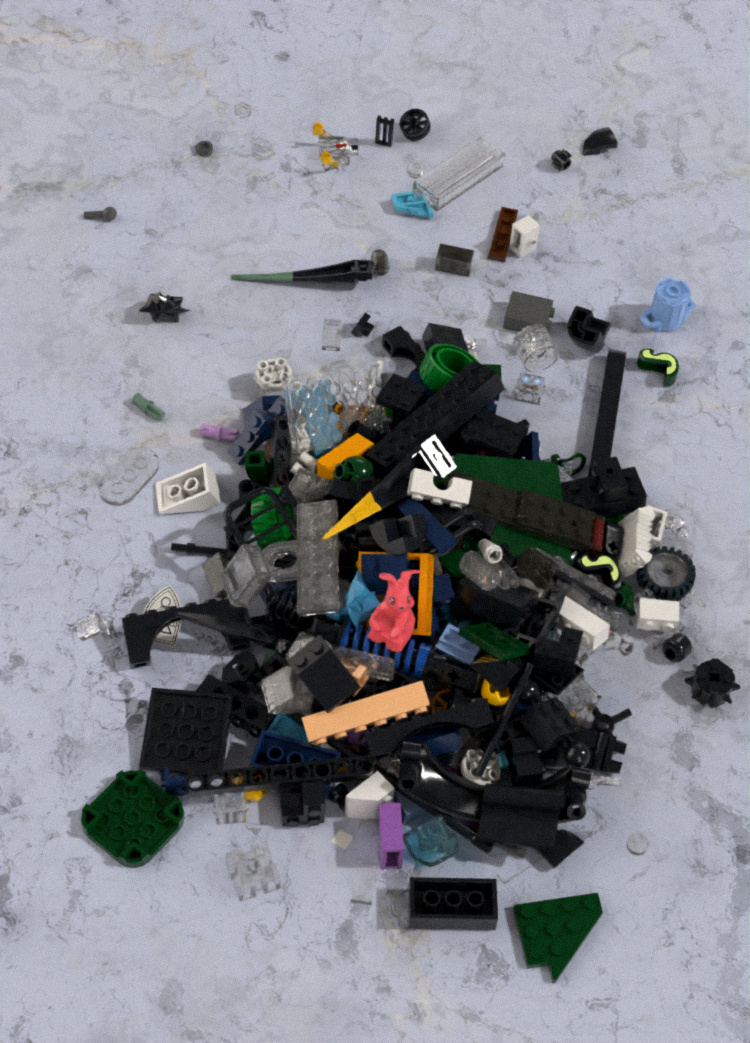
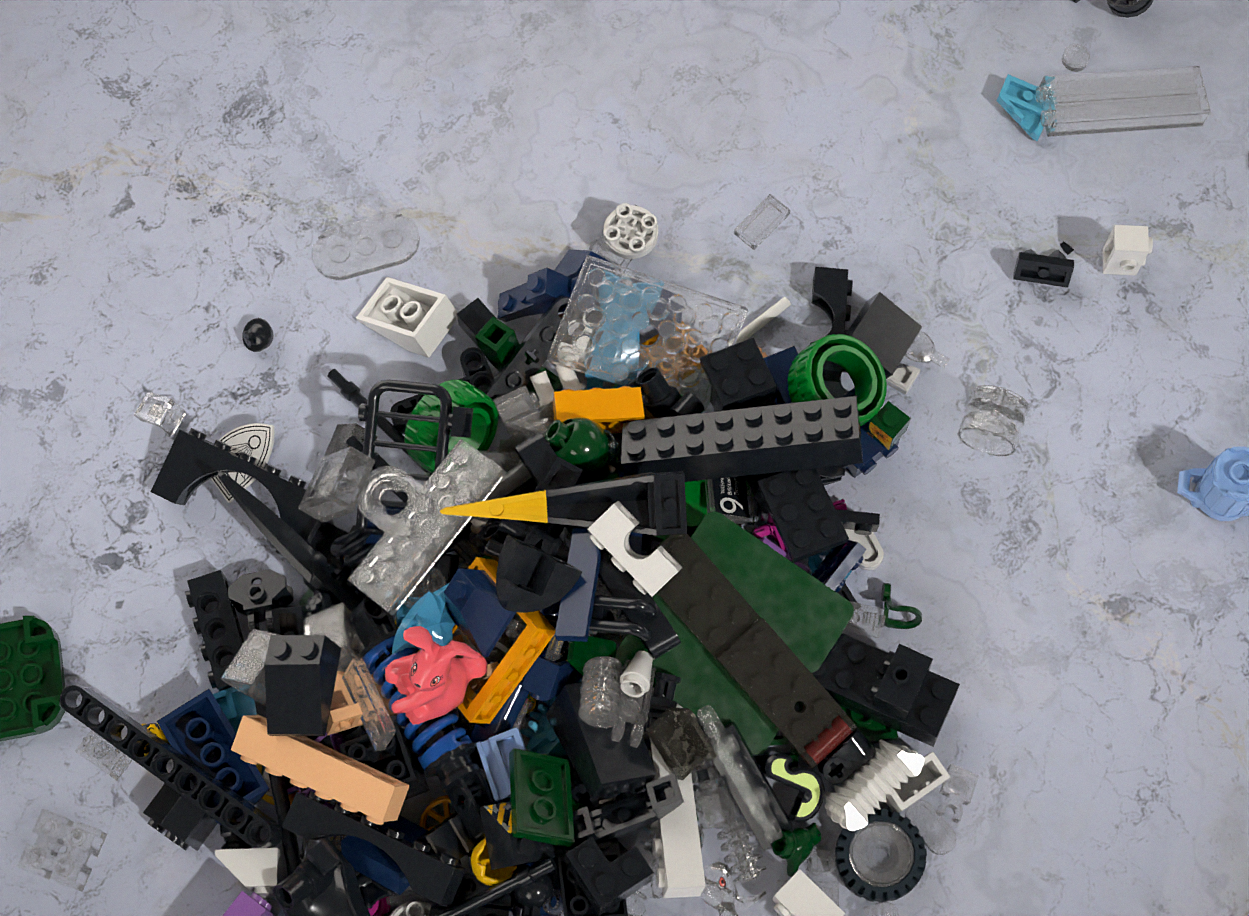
camera: 45 degrees right, 15 degrees up
(112, 554) = (257, 335): none -> black hat
(148, 406) = (461, 171): sand green axle -> none
(164, 307) = (589, 48): black hair -> none
(173, 785) = (69, 670): dark blue bracket -> none
(186, 731) = (137, 623): black plate -> none
(219, 432) = (510, 261): lavender pin -> none
(231, 471) = (474, 318): none -> black brick
(337, 273) = (845, 144): black plate -> none
(342, 839) = (198, 887): white sticker -> none
(363, 326) = (807, 236): black tile -> none
(380, 262) = (907, 161): clear smoke brick -> none
(454, 260) = (1006, 221): clear smoke brick -> none
(492, 270) = (1043, 269): none -> black tile
(502, 234) = (1095, 234): reddish brown tile -> none
(528, 310) = (1035, 364): dark grey brick -> none
(529, 388) = (941, 470): clear head -> none
(587, 330) = (1087, 442): black brick -> none
(608, 407) = (1011, 576): black beam -> none
(659, 362) = (1148, 554): dark green animal -> none

